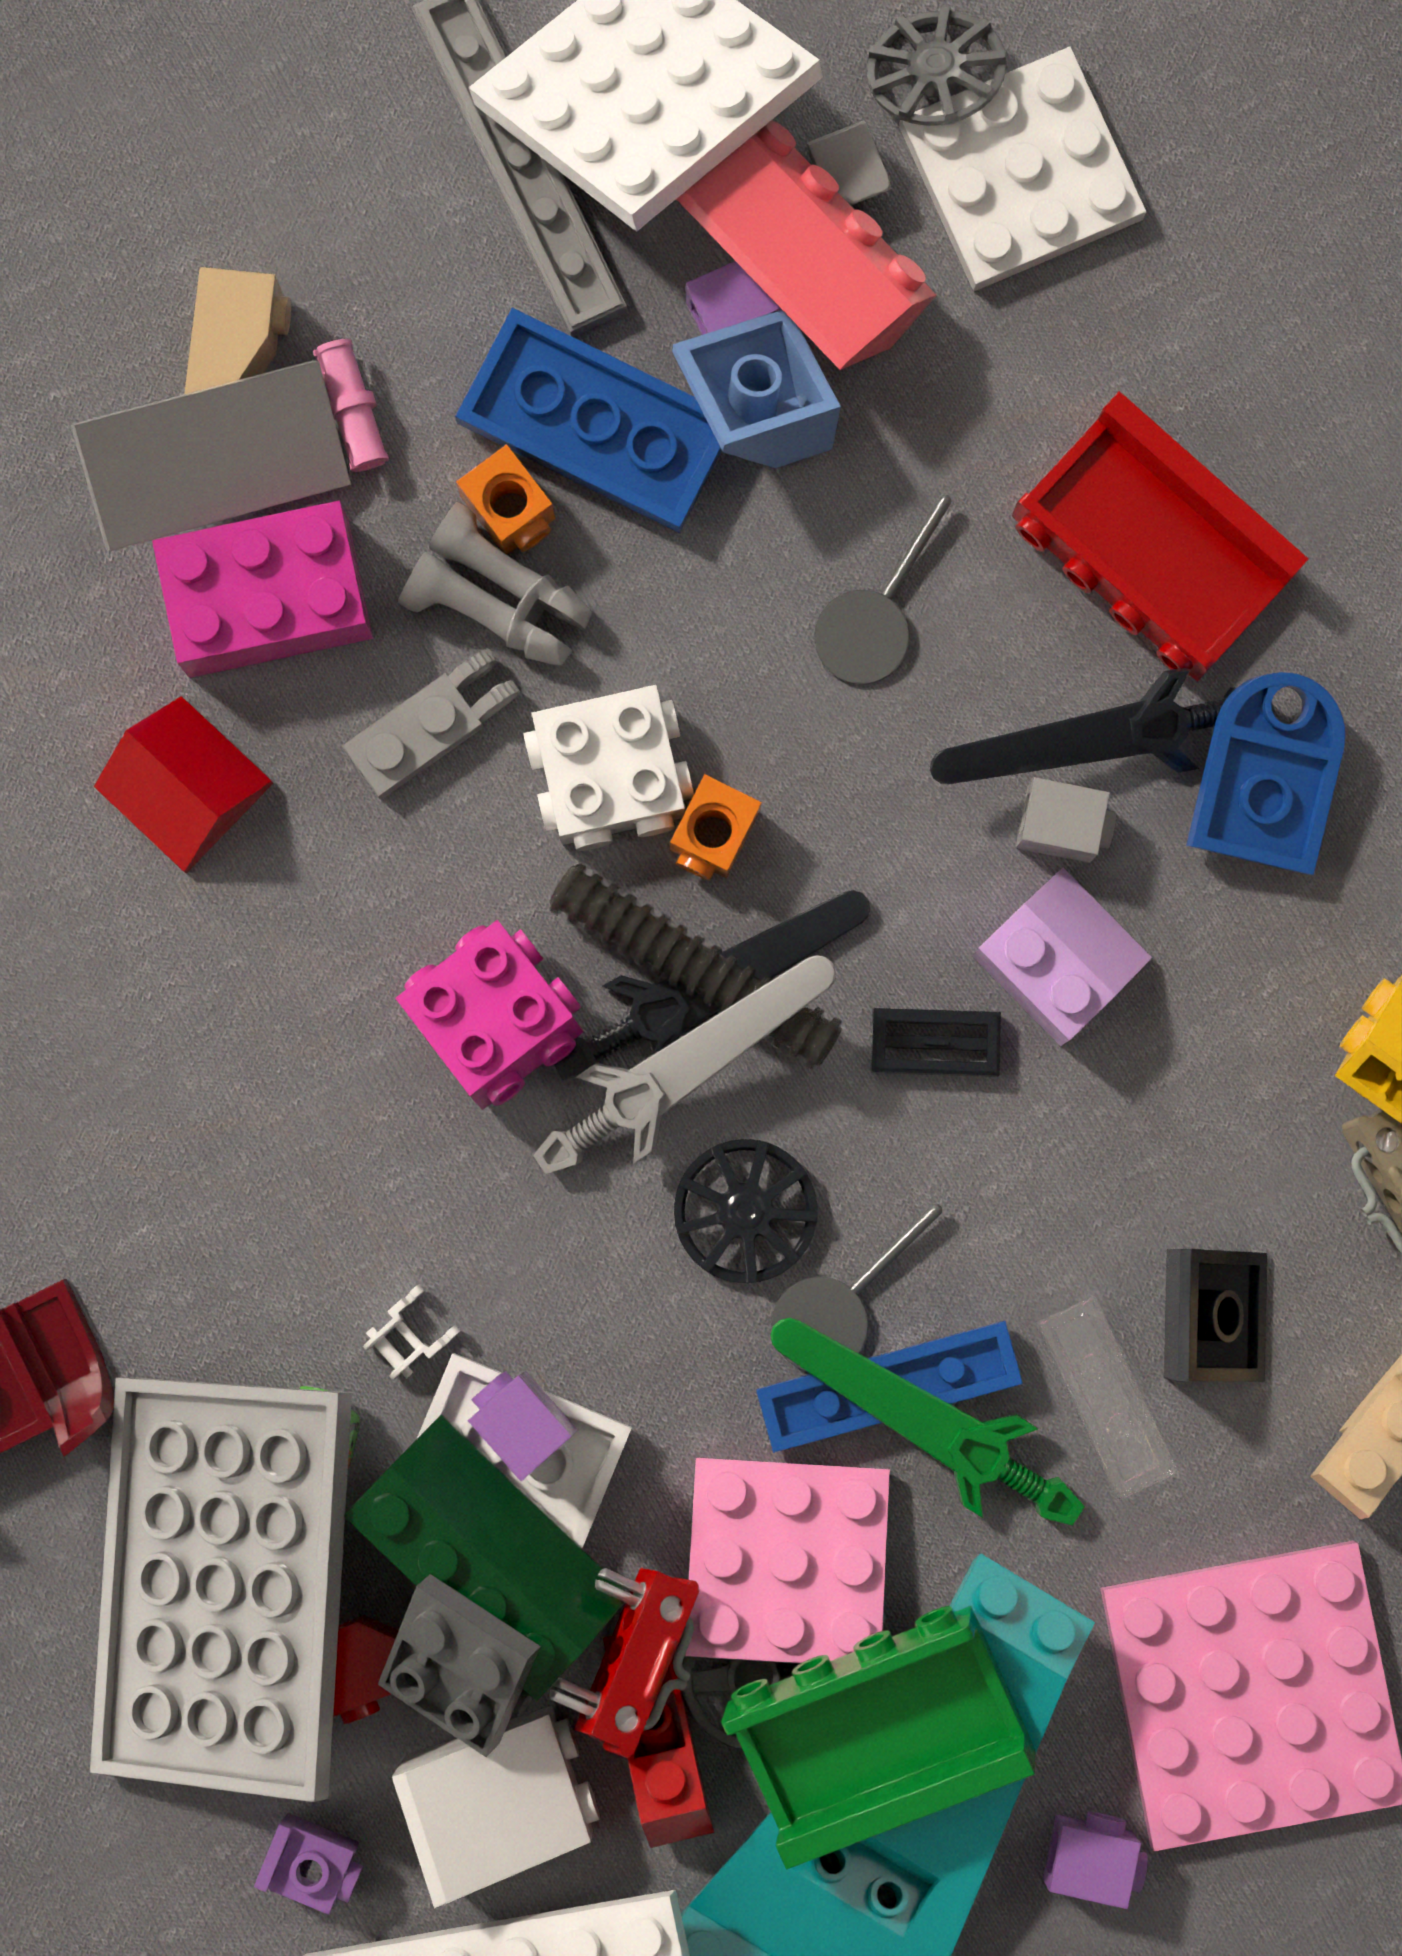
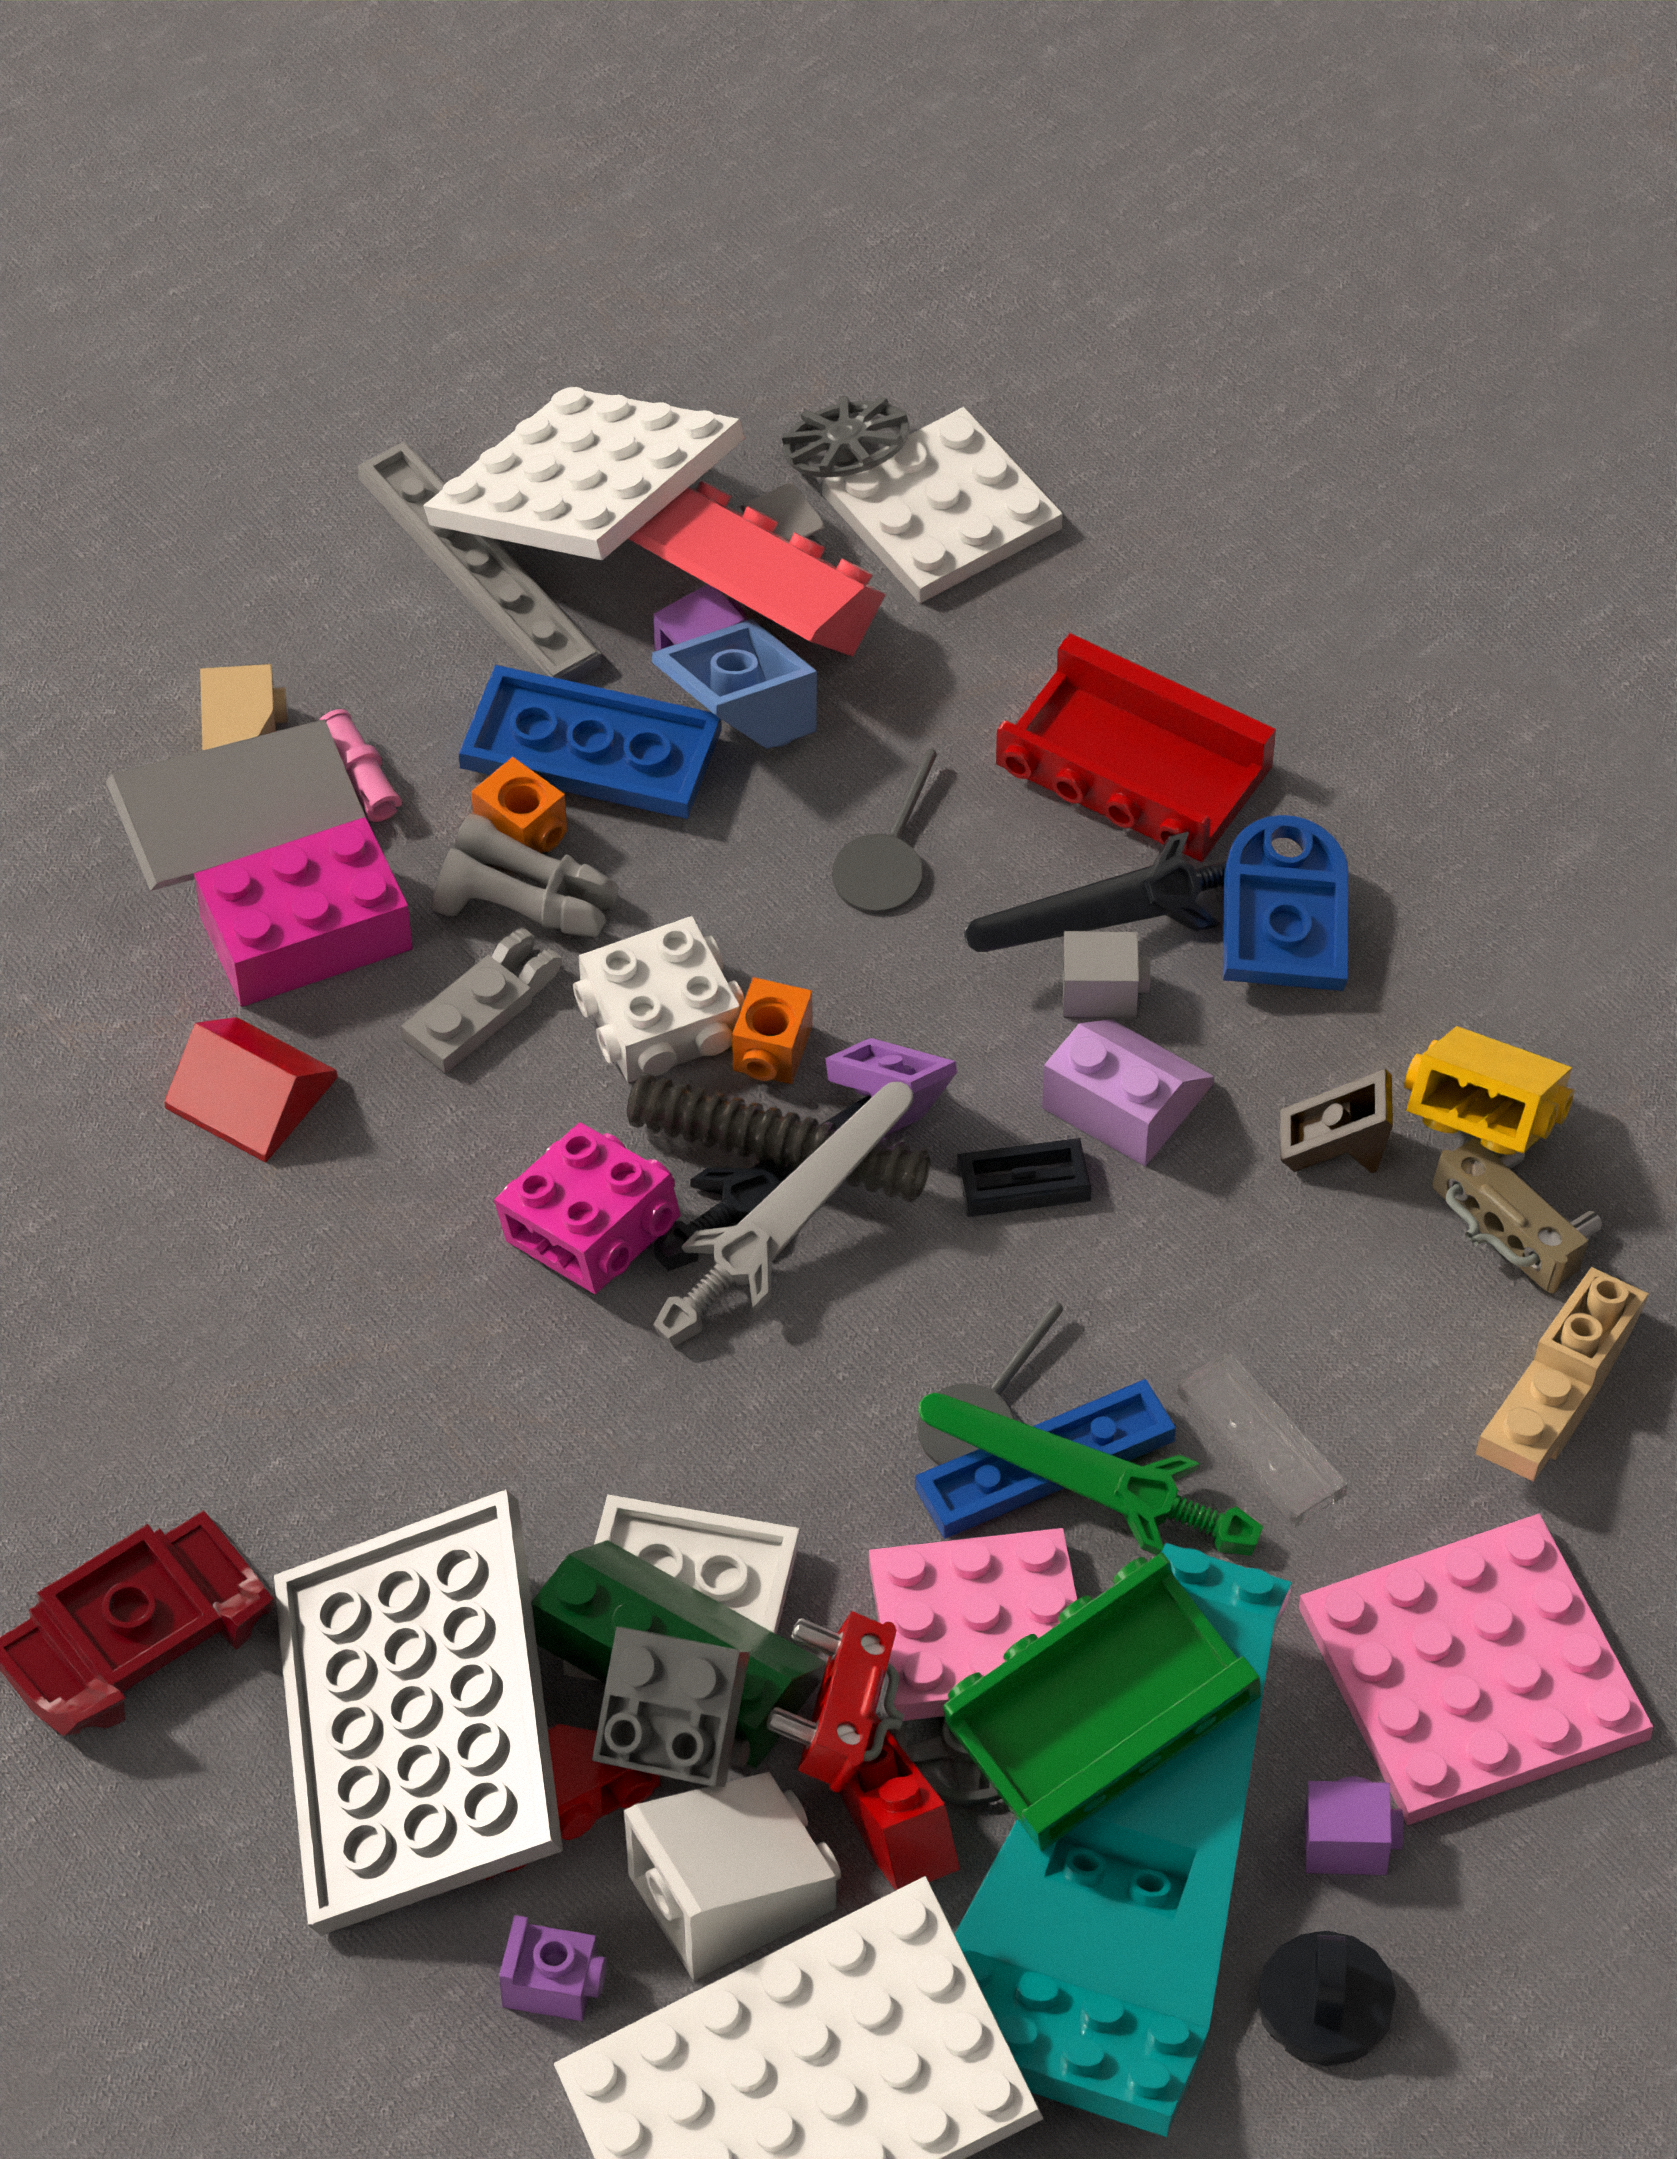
camera: 10 degrees left, 30 degrees down
(390, 1353) = (579, 1508): white piece -> none
(520, 1422) = (691, 1503): medium lavender brick -> none
(745, 1210) = (871, 1340): black wheel -> none
(821, 914) = (877, 1063): none -> medium lavender slope
(1215, 1315) = (1346, 1345): black slope -> none
(1263, 1058) = (1339, 1121): none -> dark brown slope

